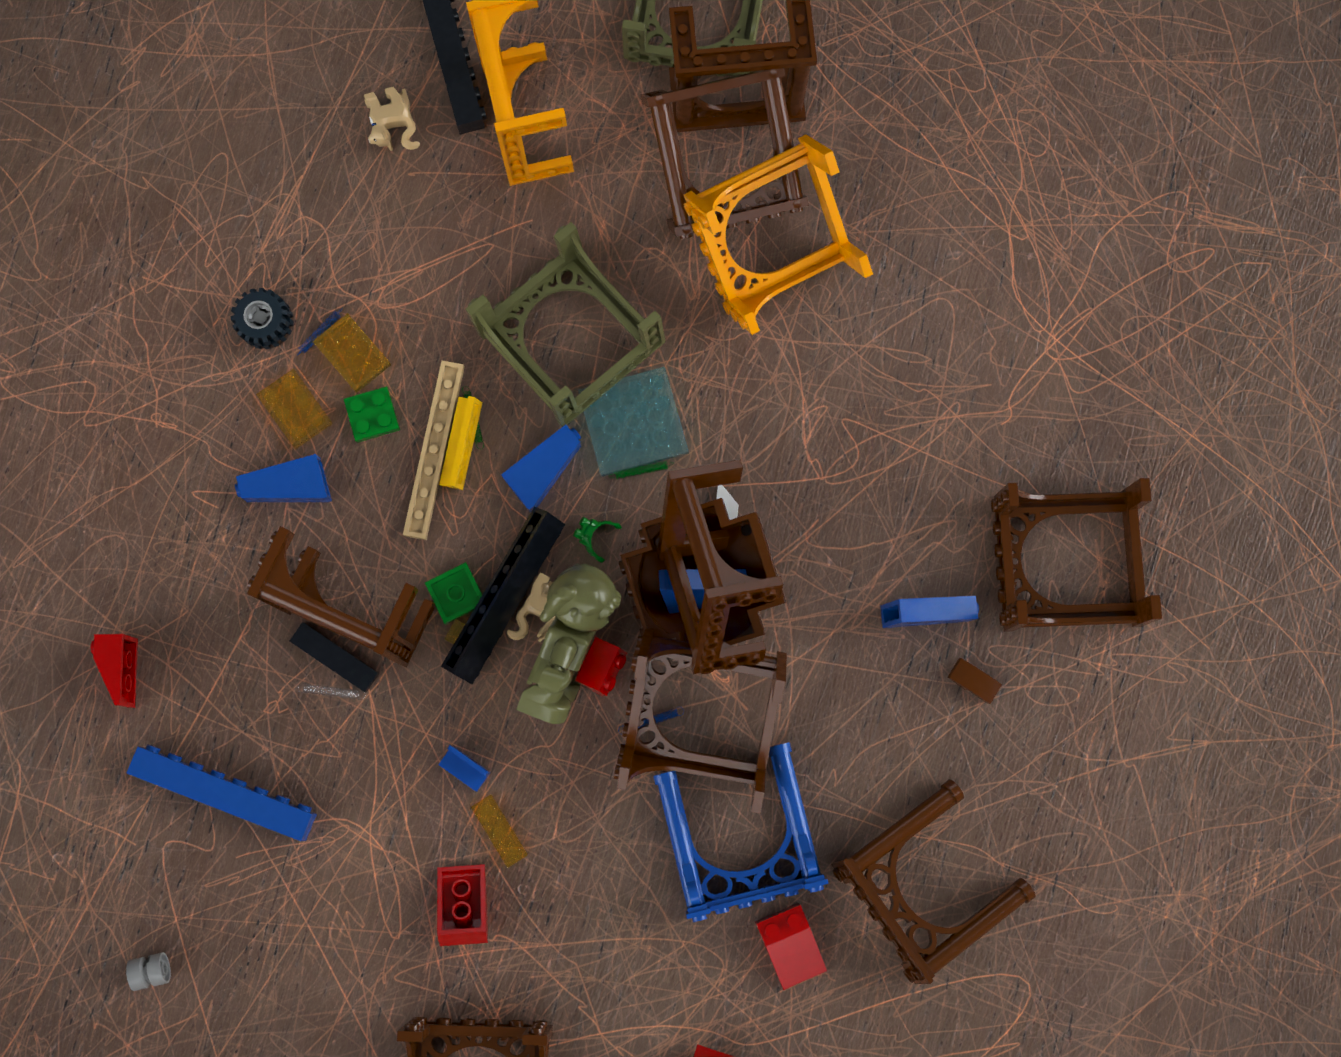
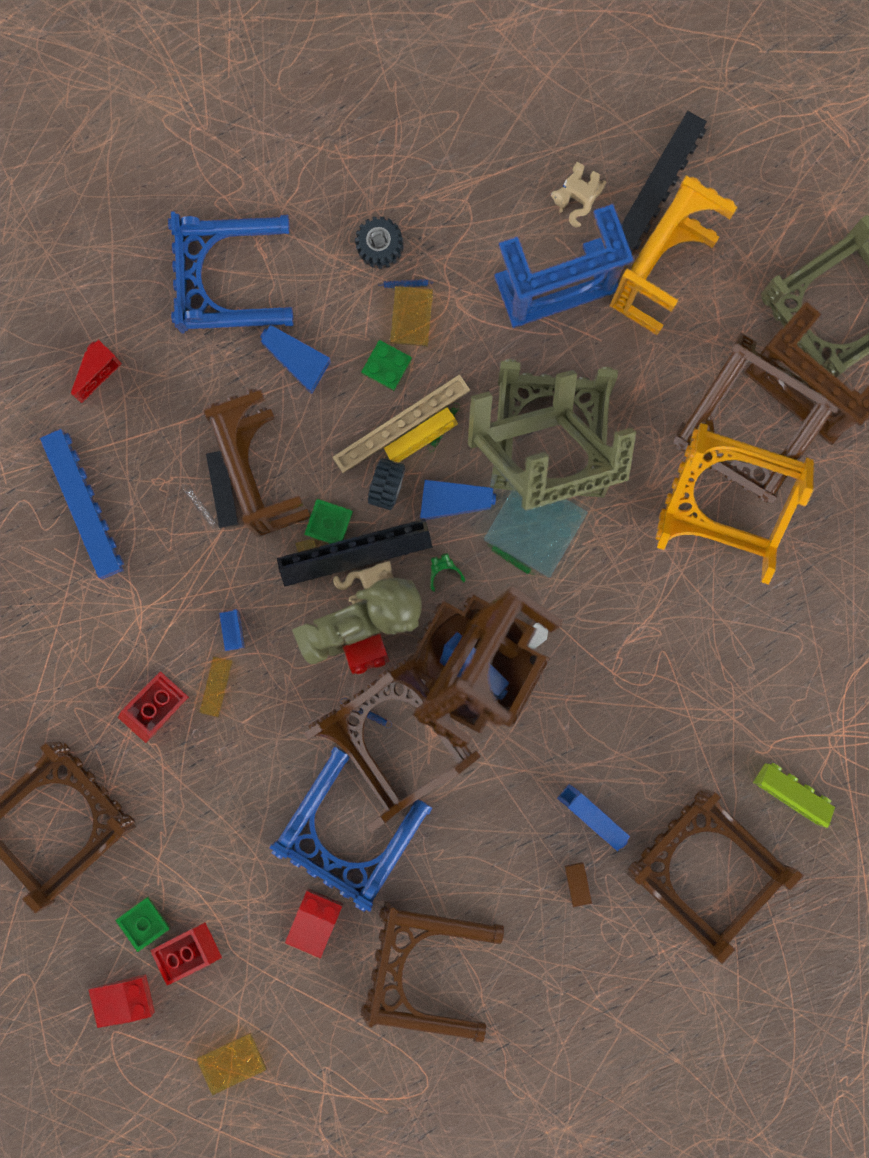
camera: 45 degrees right, 5 degrees up
(87, 461) = (219, 229): none -> blue arch
(294, 409) = (344, 316): clear yellow plate -> none
(469, 151) = (519, 285): none -> blue arch
(472, 510) = (386, 484): none -> black wheel
(597, 376) = (532, 484): none -> olive arch
(1070, 426) = (795, 795): none -> lime slope

